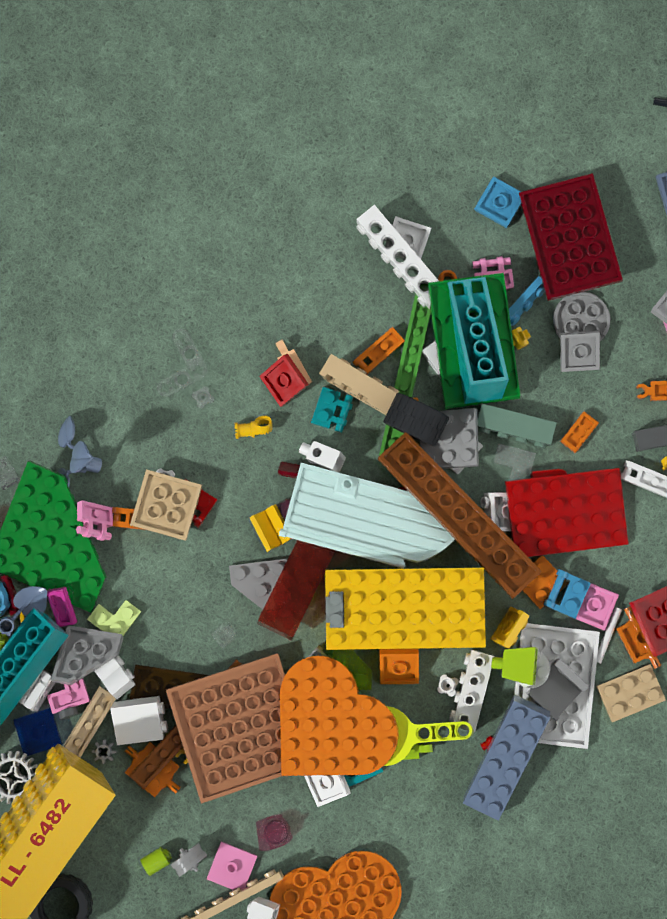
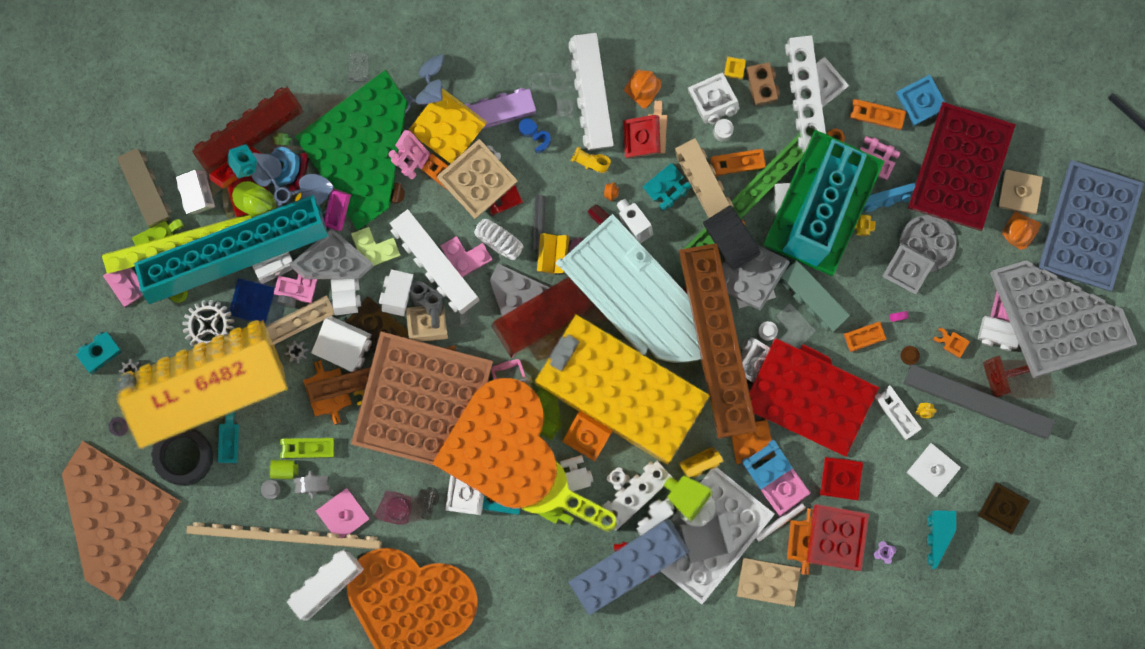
camera: 25 degrees right, 0 degrees up
(93, 866) = (228, 440): none -> teal plate
(105, 559) = (397, 193): none -> reddish brown plate
(112, 476) = (447, 127): none -> yellow plate
(145, 436) = (505, 107): none -> lavender brick
(156, 885) = (270, 489): none -> light grey plate
(158, 646) = (396, 293): none -> white brick
(166, 828) = (307, 448): none -> lime plate
(174, 599) = (434, 261): none -> white brick
(184, 433) = (529, 129): none -> blue leg
(186, 636) = (429, 298): none -> dark grey beam
(199, 582) = (465, 261): none -> bright pink plate
(200, 655) = (420, 325): none -> tan plate
(216, 368) = (591, 91): none -> white brick
(217, 545) = (498, 239): none -> white gear
(241, 506) = (539, 219): none -> dark grey axle
(258, 337) = (643, 87): none -> orange piece
(287, 443) = (611, 191): none -> orange plate
(291, 648) = (506, 365): none -> bright pink piece
(297, 807) = (428, 499): none -> clear smoke plate
(324, 310) = (714, 99): none -> white plate
(325, 273) = (734, 68): none -> yellow plate
(349, 331) = (723, 130): none -> white brick
(353, 275) = (758, 85): none -> medium nougat brick
(412, 708) = (577, 478): none -> white brick
(471, 237) = (878, 114): none -> orange plate
(494, 478) = (768, 331): none -> white plate
(503, 694) = (658, 513): none -> white plate
(597, 396) = (898, 316): none -> dark pink tile
(627, 424) = (909, 355): none -> reddish brown plate
(631, 228) = (1020, 192): none -> tan plate
(636, 565) = (841, 478): none -> red plate
(651, 260) = (1020, 230): none -> orange piece

